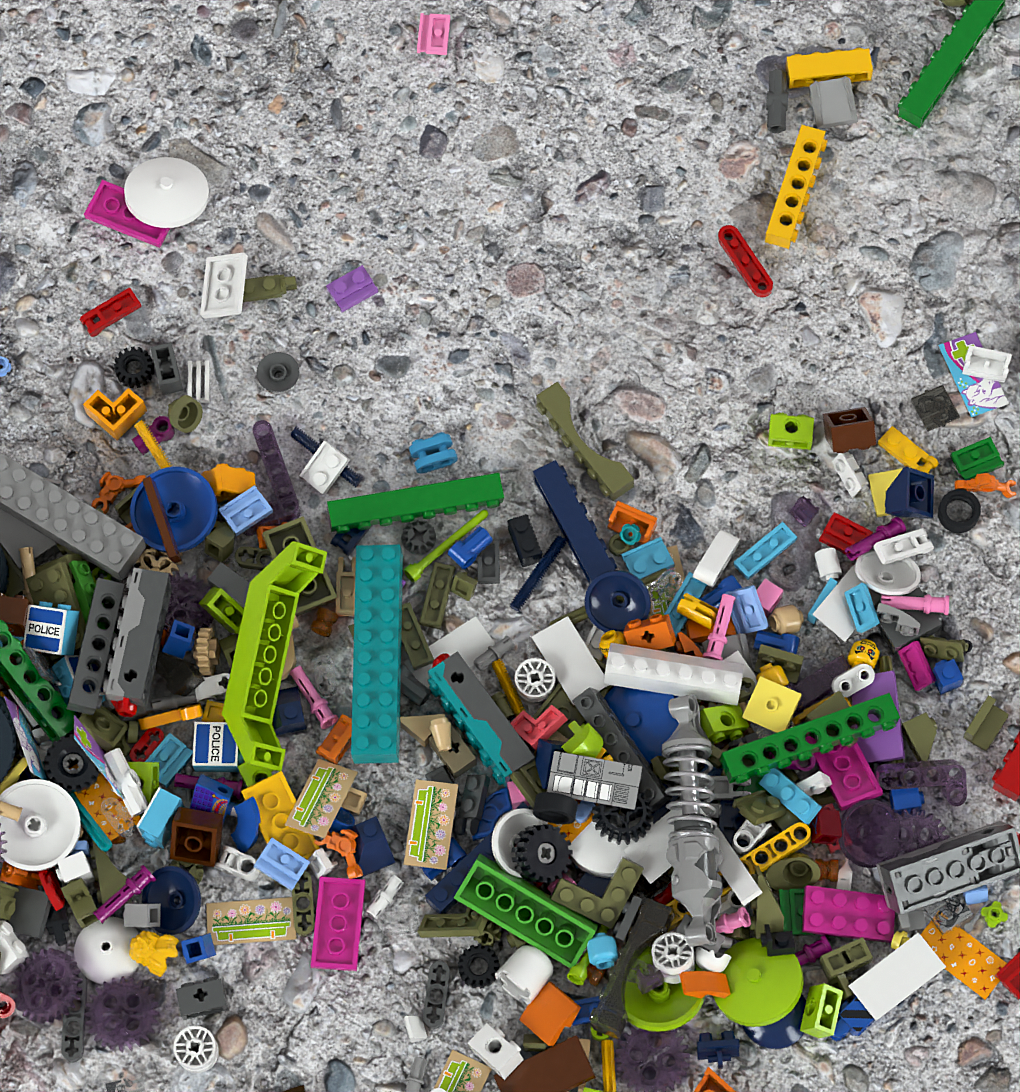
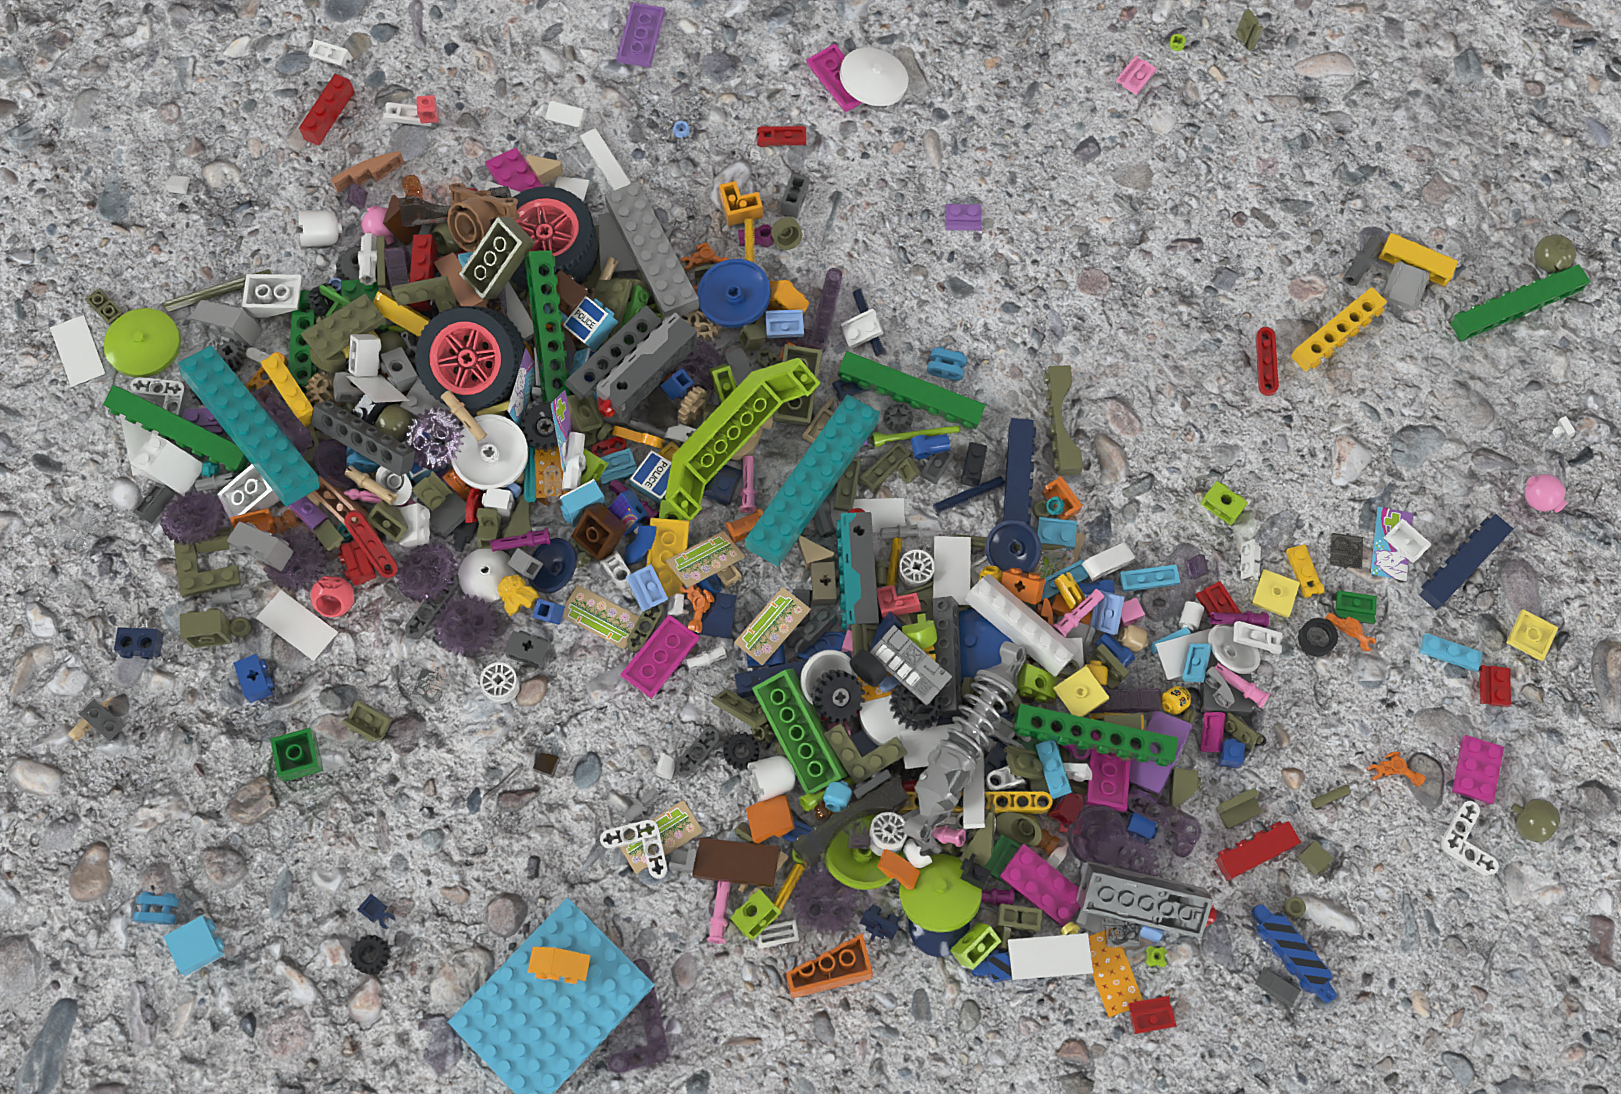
camera: 25 degrees right, 0 degrees up
(42, 666) = (567, 345): clear piece -> none
(130, 356) = (772, 173): black tyre -> none
(161, 520) = (719, 294): reddish brown tile -> none
(198, 365) = (819, 207): white tile -> none
(223, 285) = (872, 162): white plate -> none
(267, 287) = (901, 181): olive hinge -> none
(278, 363) = (874, 237): dark grey dish -> none
(324, 622) = (790, 436): clear orange wheel -> none
(441, 733) = (822, 564): tan cone -> none
(505, 1059) = (713, 831): white brick -> none
(849, 430) = (1269, 527): reddish brown brick -> none
(853, 679) = (1157, 712): white plate -> none
(911, 495) = (1287, 602): dark blue slope -> none

